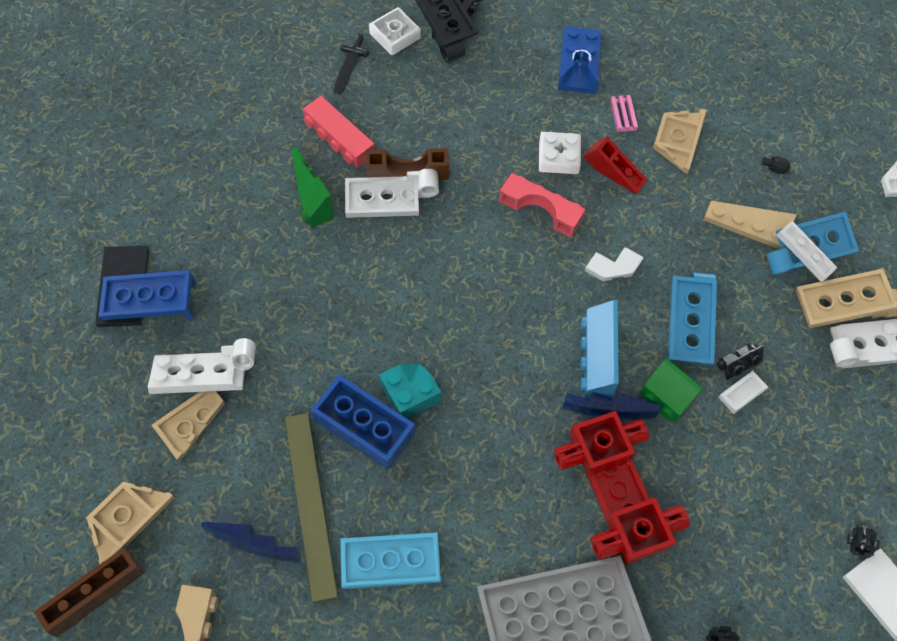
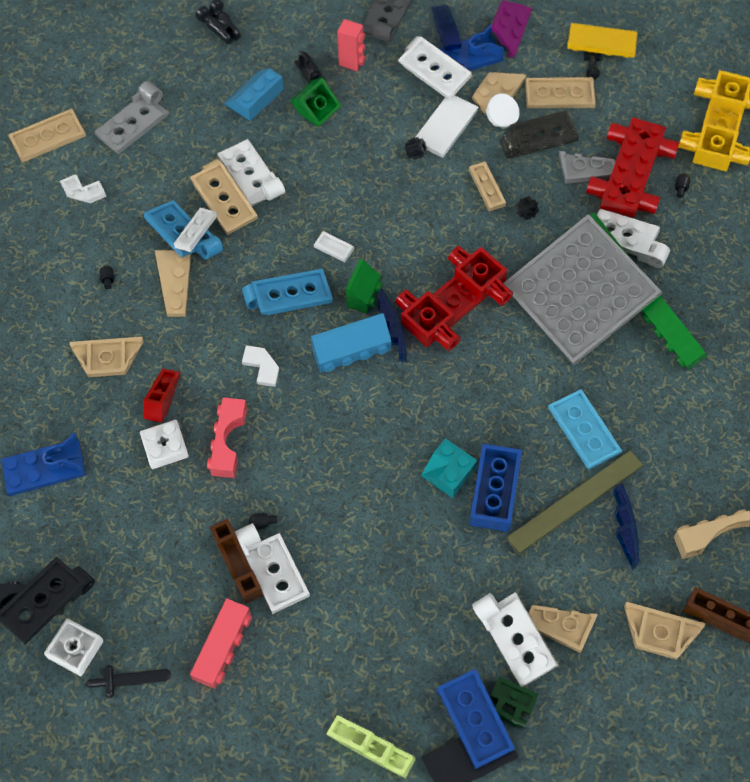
camera: 110 degrees left, 0 degrees up
(149, 345) = (516, 697): none -> dark green plate
(186, 208) = (371, 746): none -> yellowish green slope
(313, 195) = (310, 626): green wedge -> none
(440, 204) = (262, 520): none -> black cylinder
(622, 101) = (94, 406): bright pink tile -> none
(749, 356) = (314, 257): black hinge -> none
(776, 608) = (487, 186): none -> tan plate

